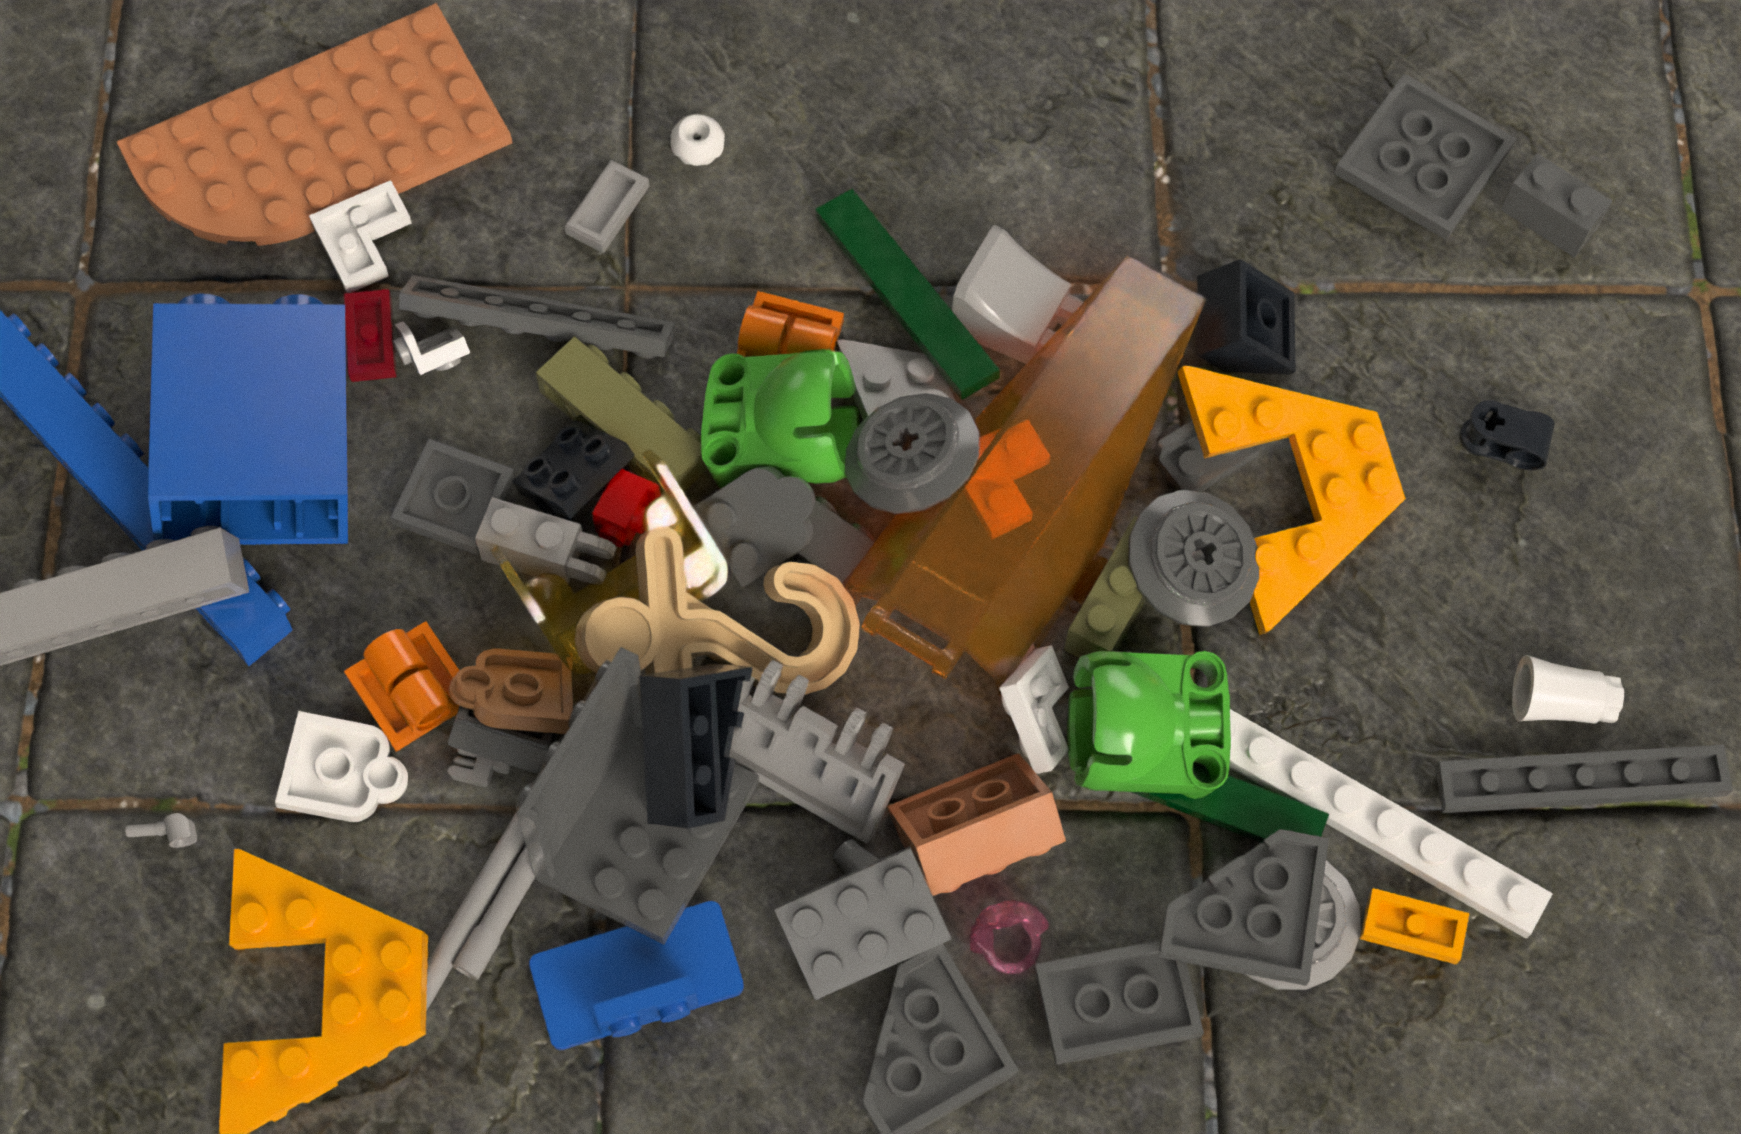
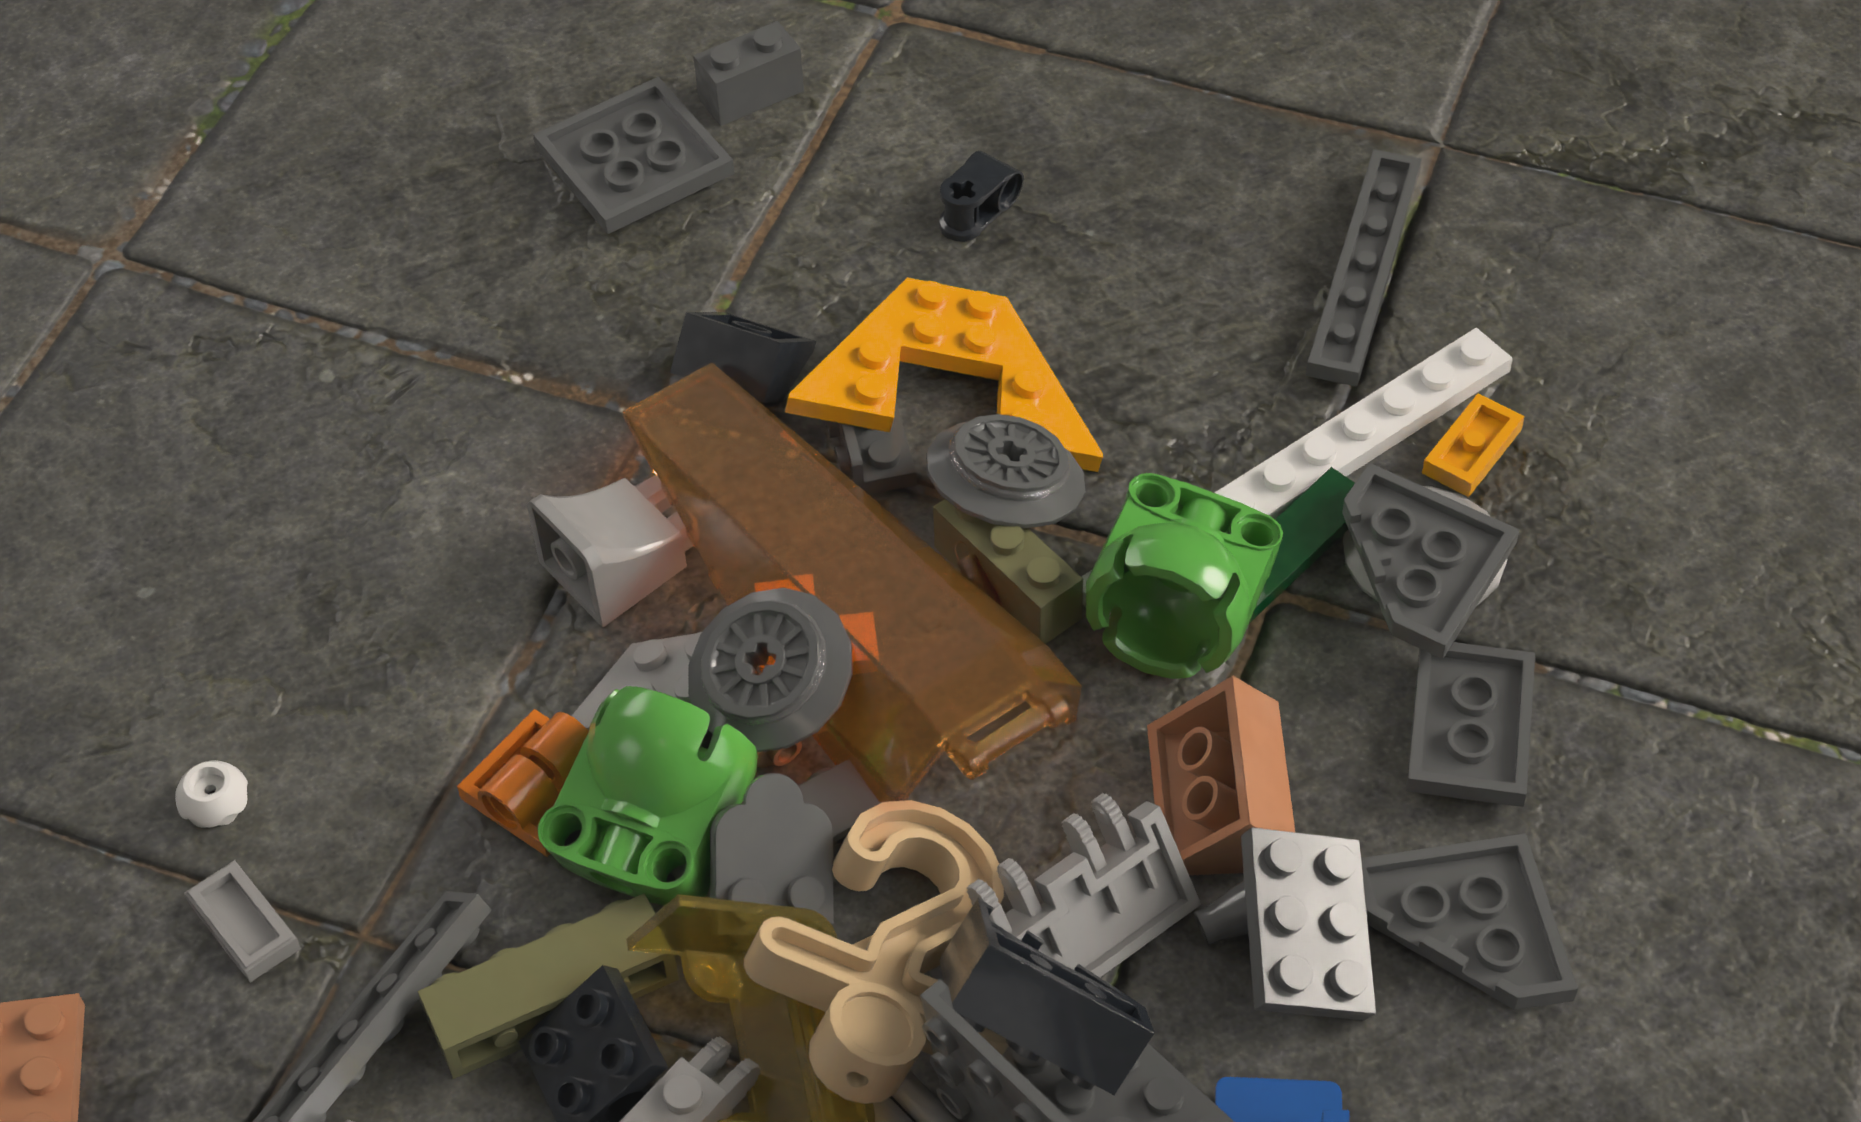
camera: 65 degrees left, 15 degrees down
(622, 507) = (672, 1015): red brick -> none
(908, 294) = (541, 639): dark green tile -> none
(1002, 916) = (1342, 795): clear pink piece -> none
(1029, 702) = (1108, 675): white plate -> none
(1564, 693) = (1269, 251): white plant -> none

